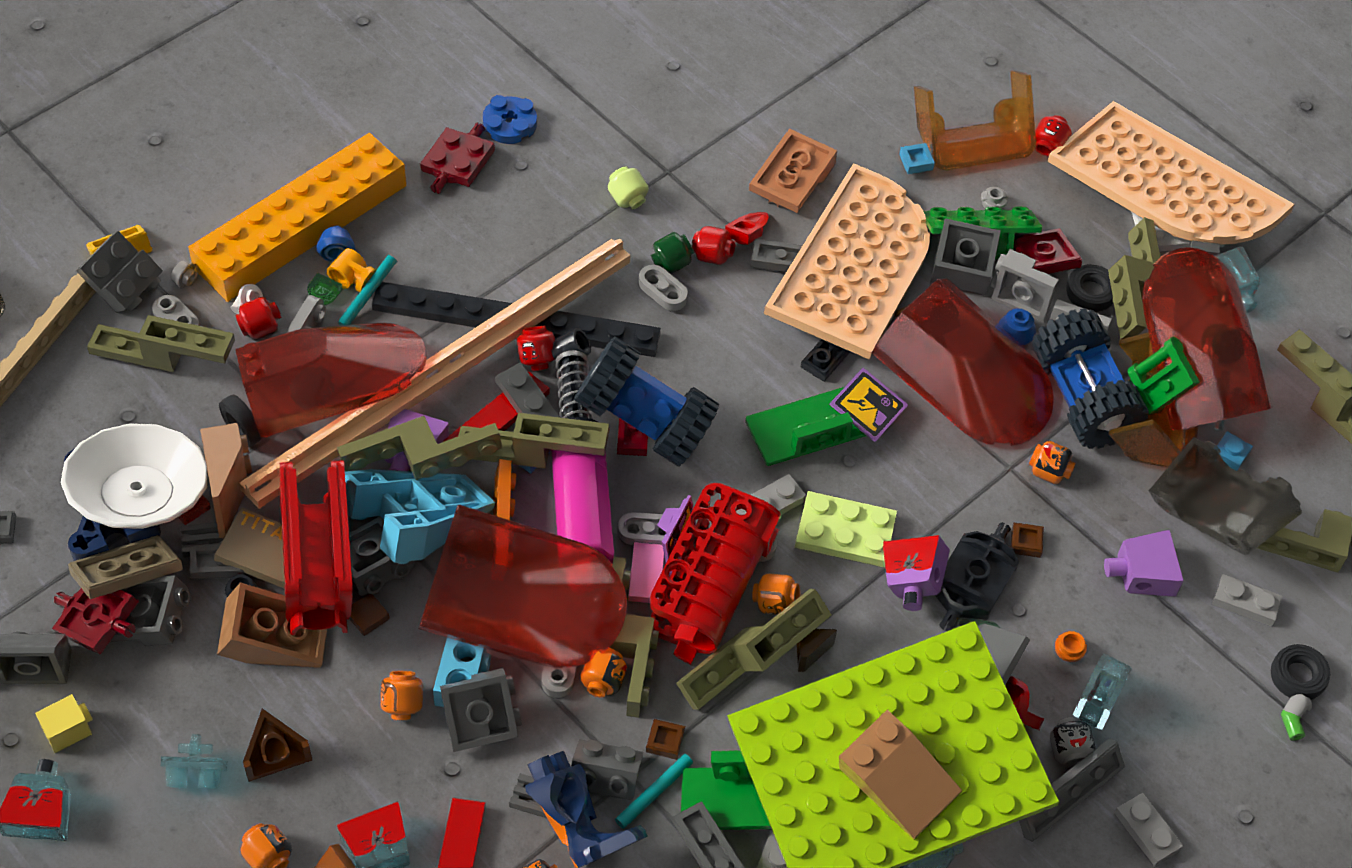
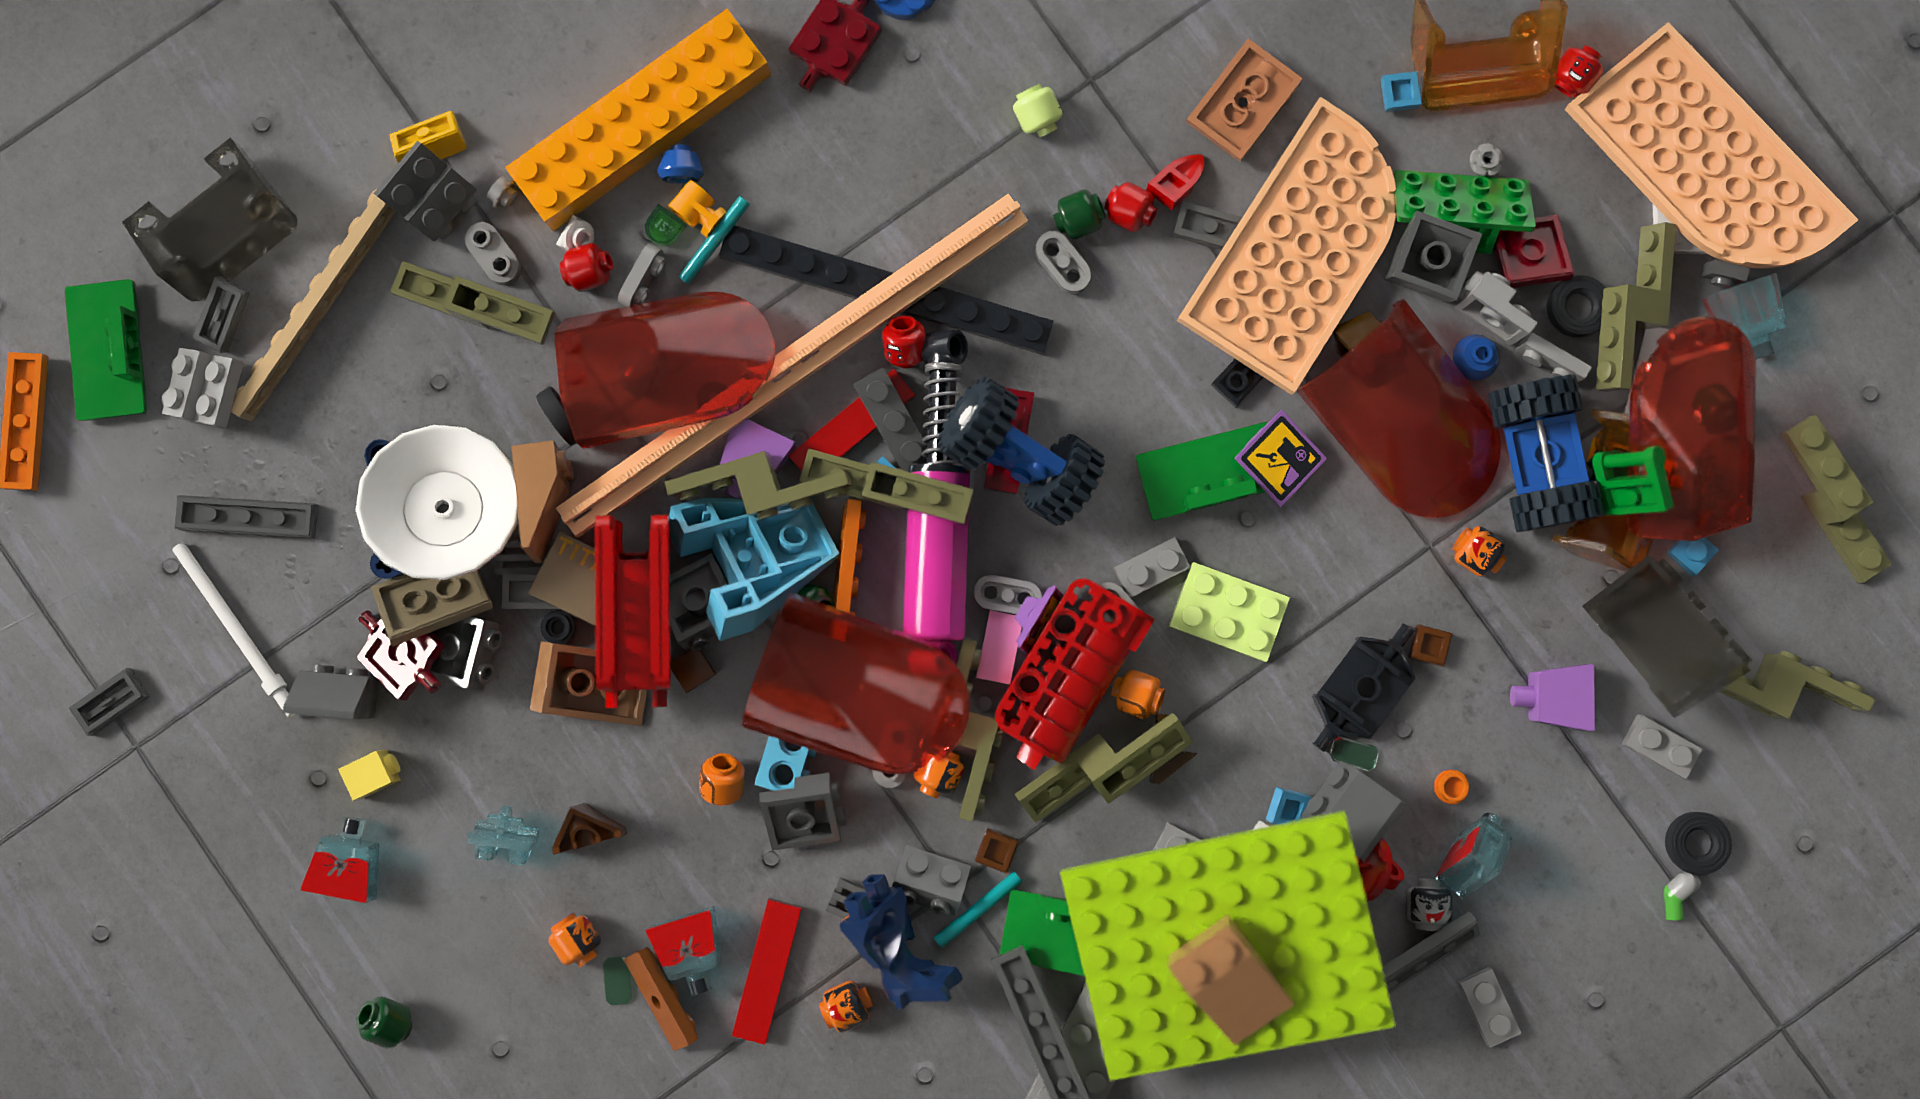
camera: 10 degrees right, 30 degrees up
(915, 568) = (1295, 684): torso -> none

